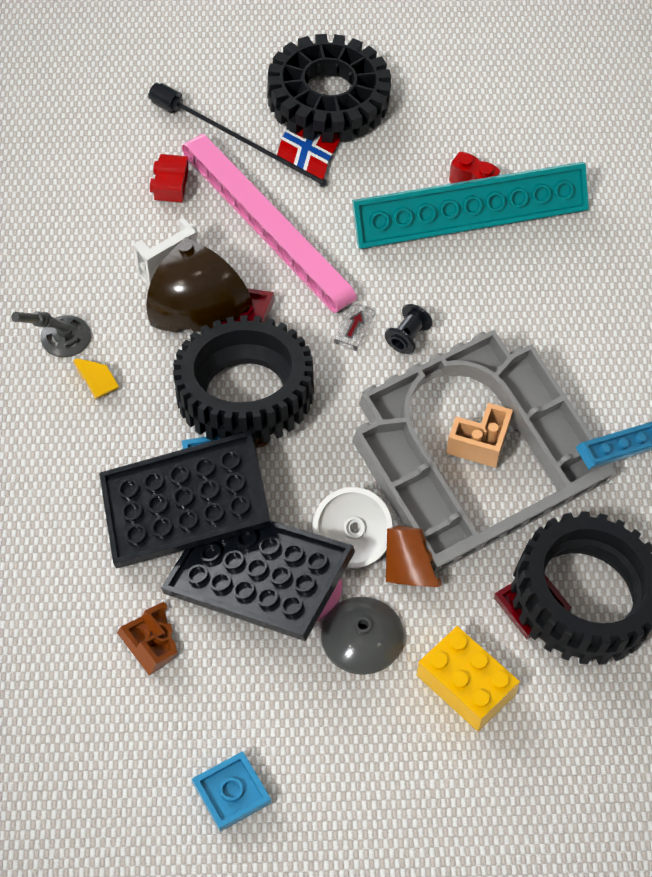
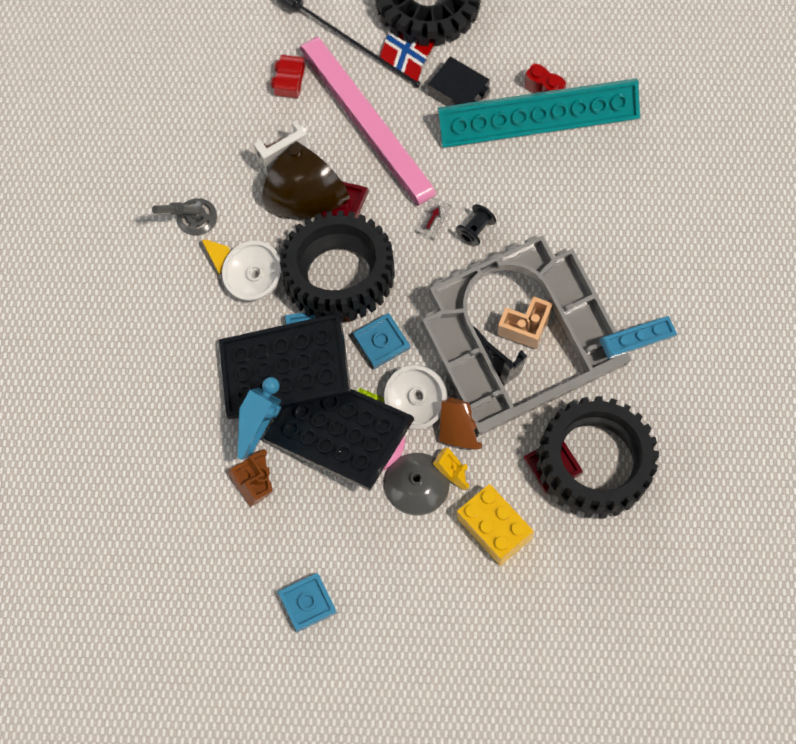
camera: 10 degrees right, 10 degrees up
(129, 382) = (244, 263): none -> white dish
(152, 556) = (256, 415): none -> dark azure slope
(303, 466) = (381, 340): none -> dark azure plate
(371, 176) = (458, 84): none -> black brick
(405, 613) = (451, 468): none -> yellow slope
(470, 487) = (503, 366): none -> black hinge

